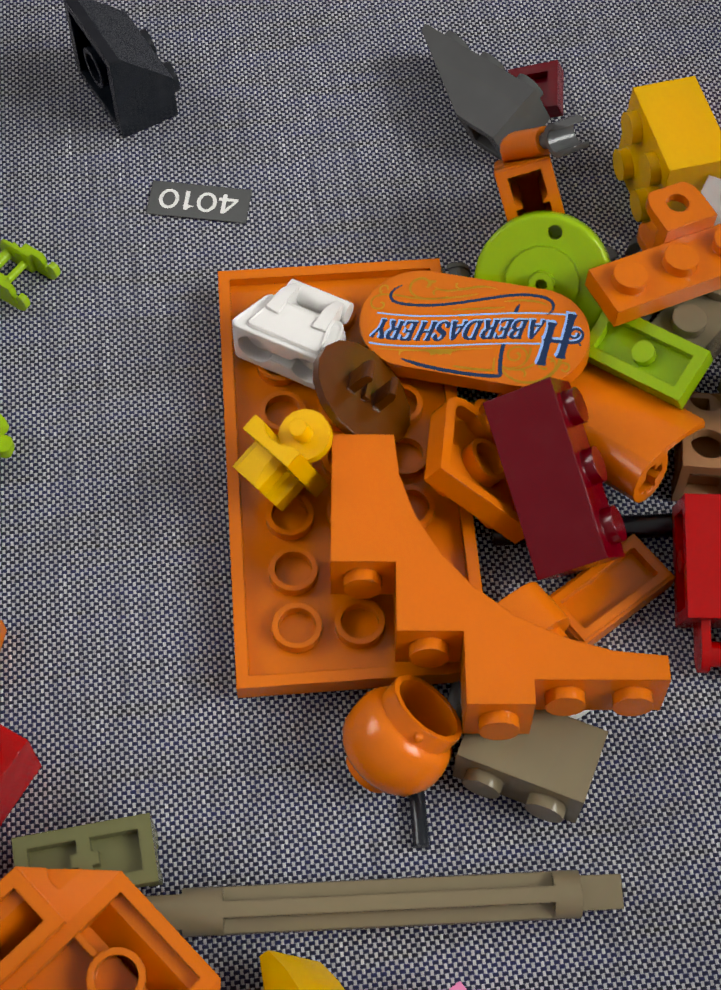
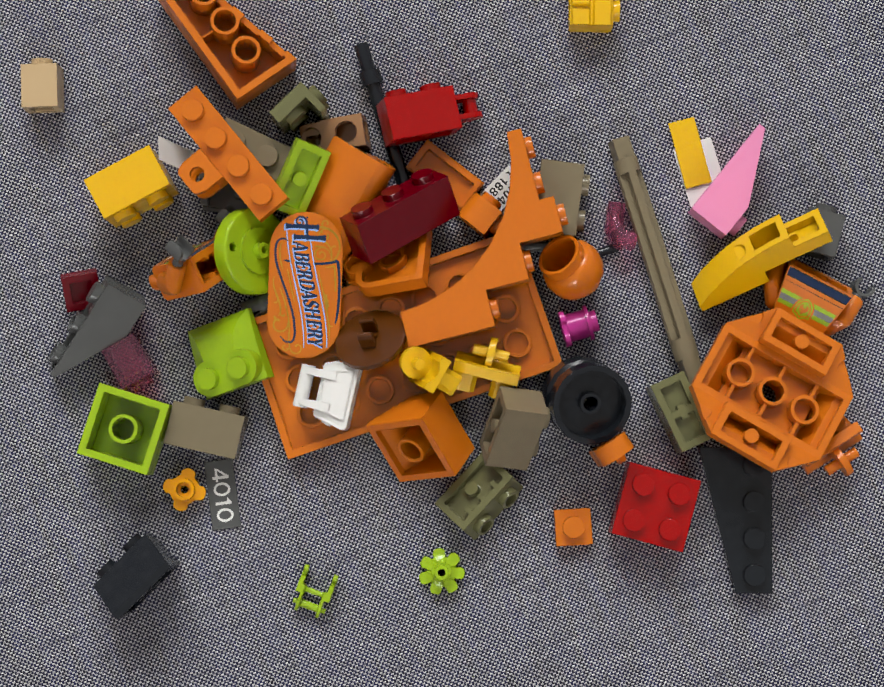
camera: 100 degrees left, 25 degrees up
(61, 718) = (612, 450): none -> orange piece
(67, 514) = (479, 497): none -> olive bracket
(153, 571) = (514, 428): none -> dark tan brick
(160, 699) = (606, 404): none -> black wheel
(183, 446) = (422, 438): none -> orange slope
(221, 154) = (194, 492): none -> light orange plate
(267, 556) = (486, 364): none -> yellow hips
(295, 188) = (206, 429): none -> dark tan brick
(298, 730) = (578, 325): none -> dark pink brick
(325, 92) = (125, 429): none -> lime brick
(392, 230) = (228, 355): none -> lime slope
(417, 124) = (131, 363): none -> clear pink brick
(456, 844) = (615, 230): none -> clear pink arm

